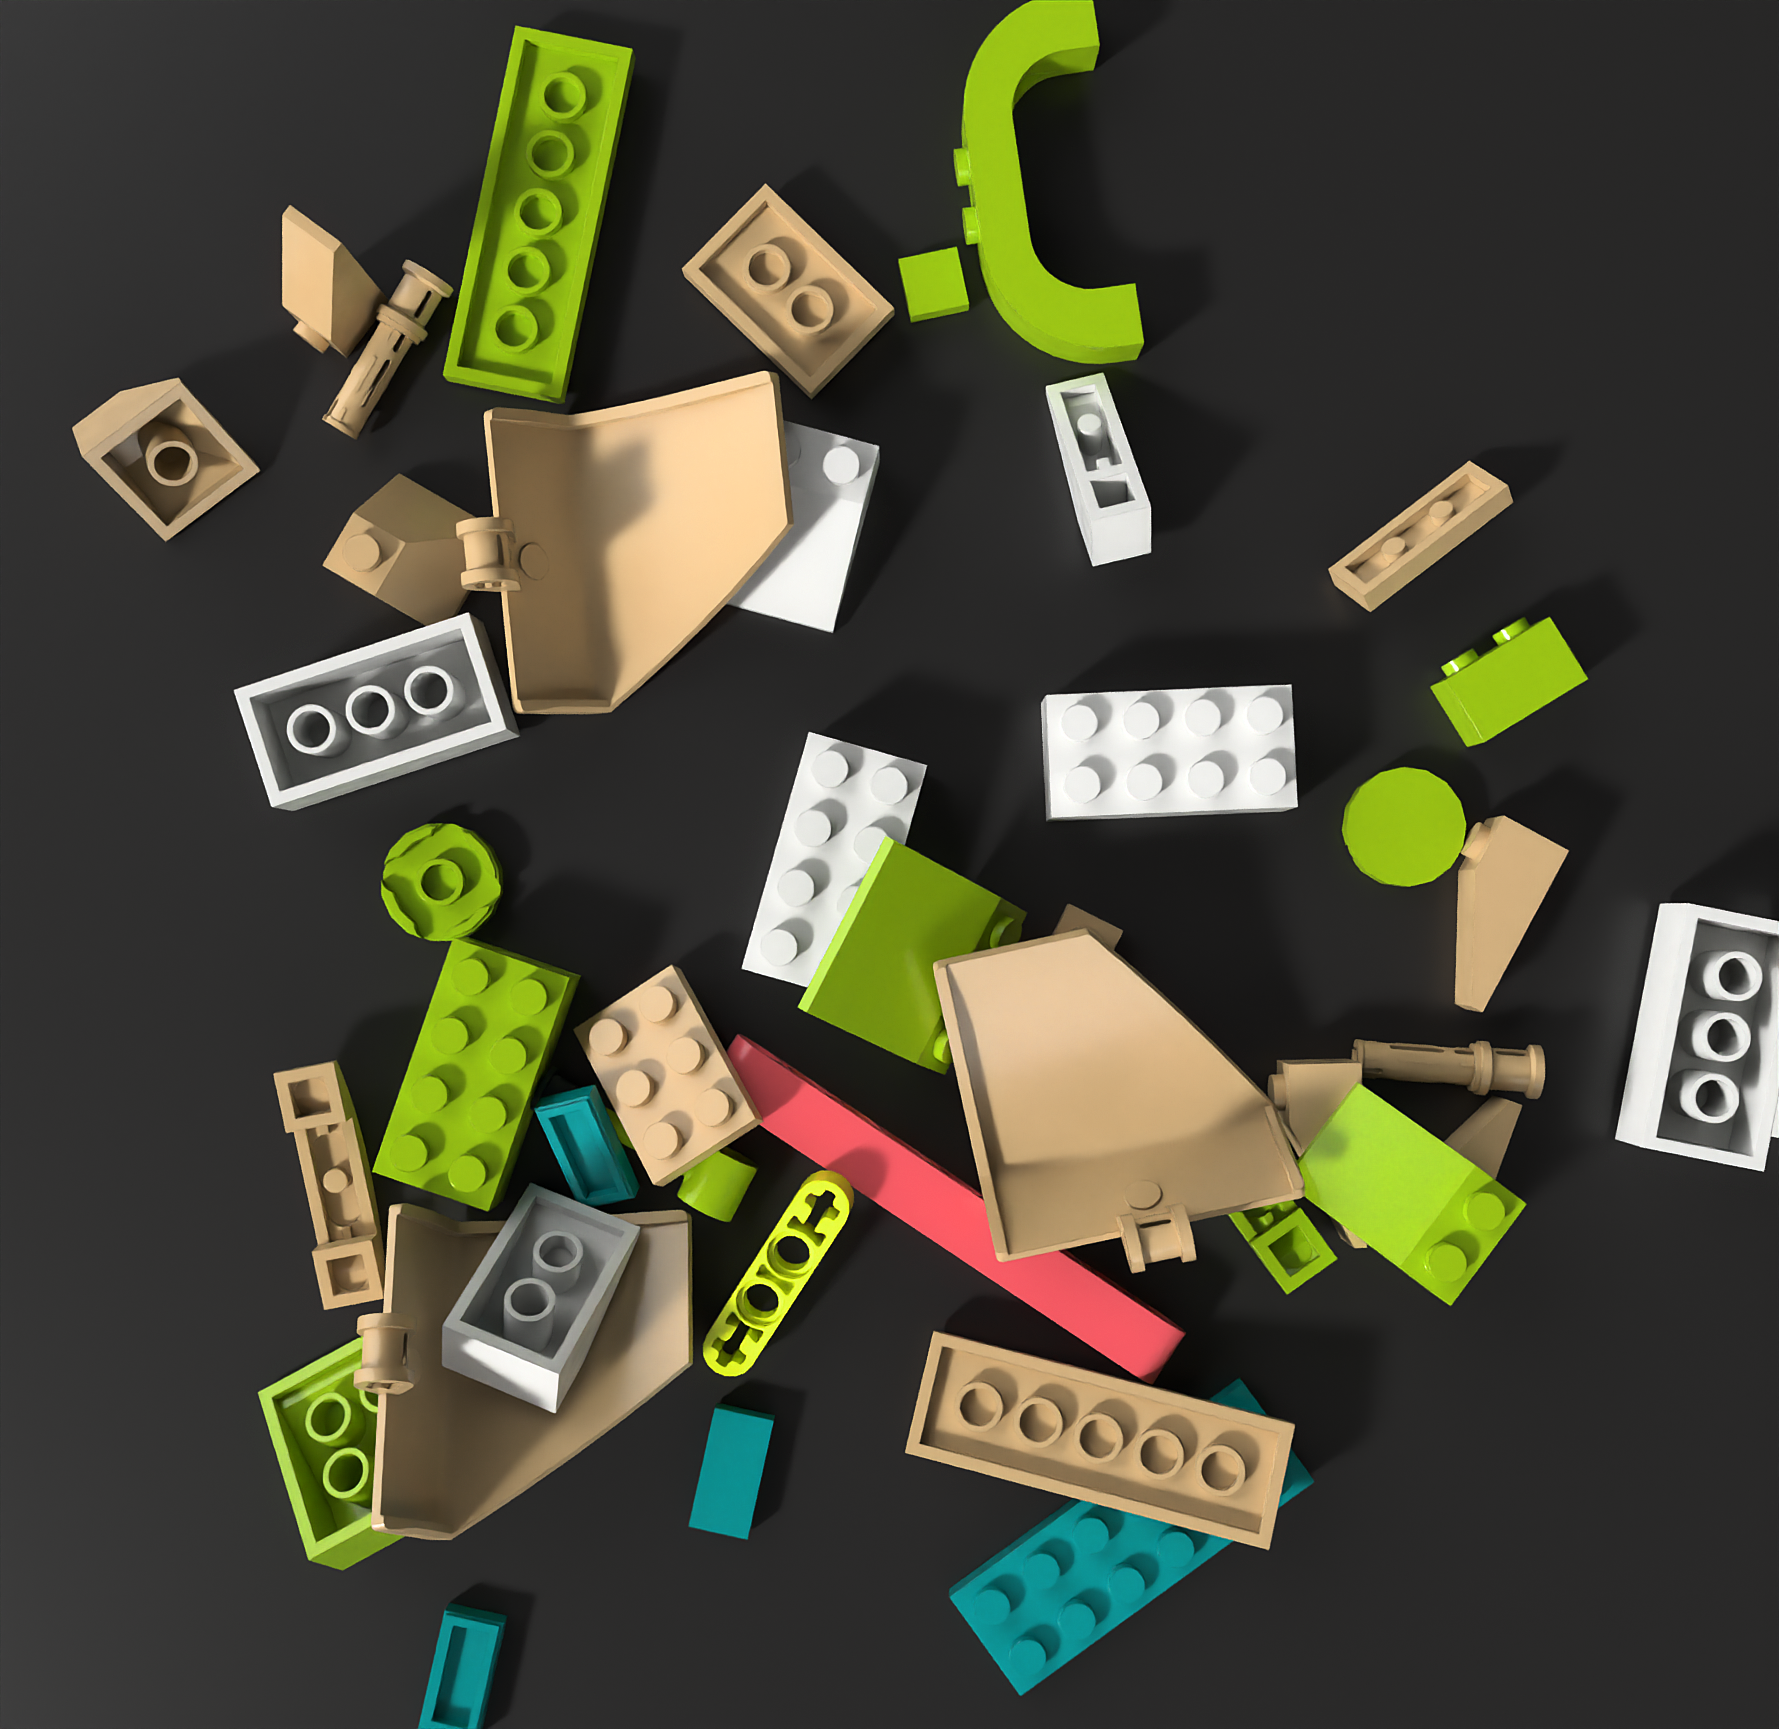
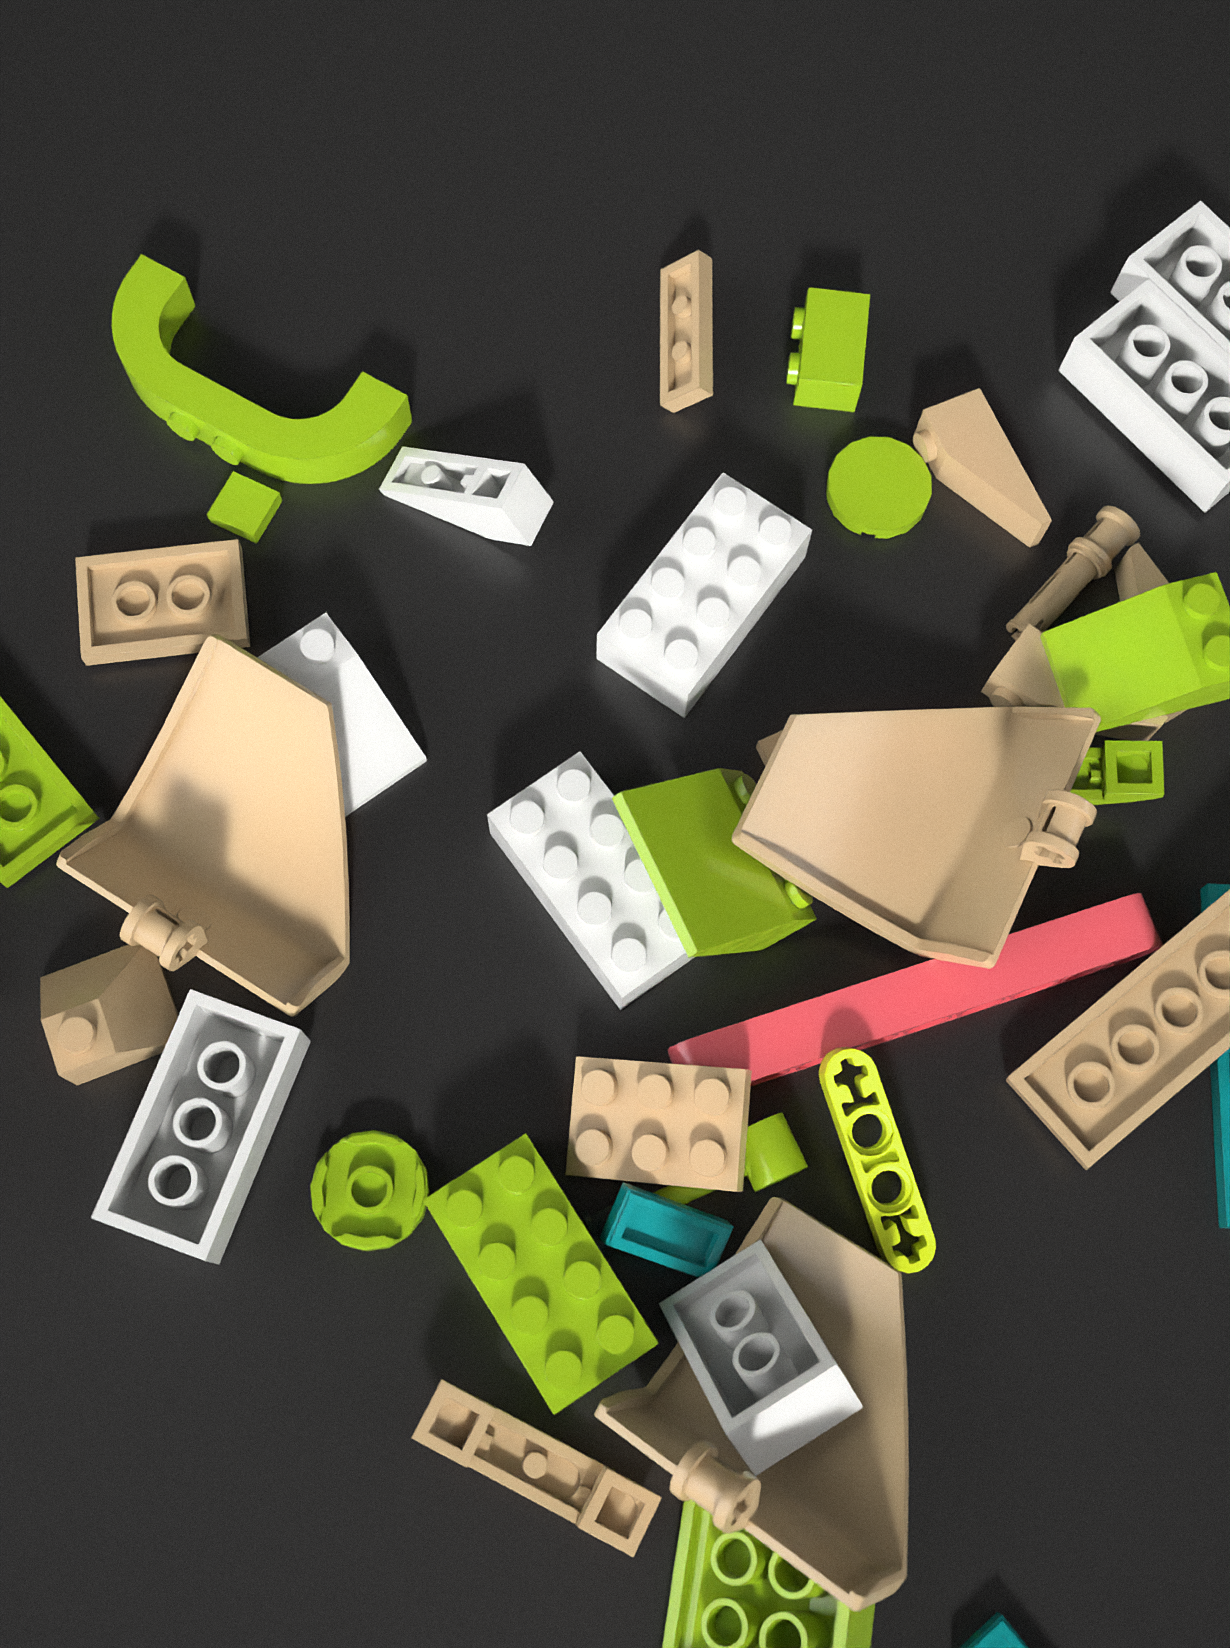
camera: 60 degrees left, 15 degrees down
(731, 1471) = (1006, 1324): teal tile -> none

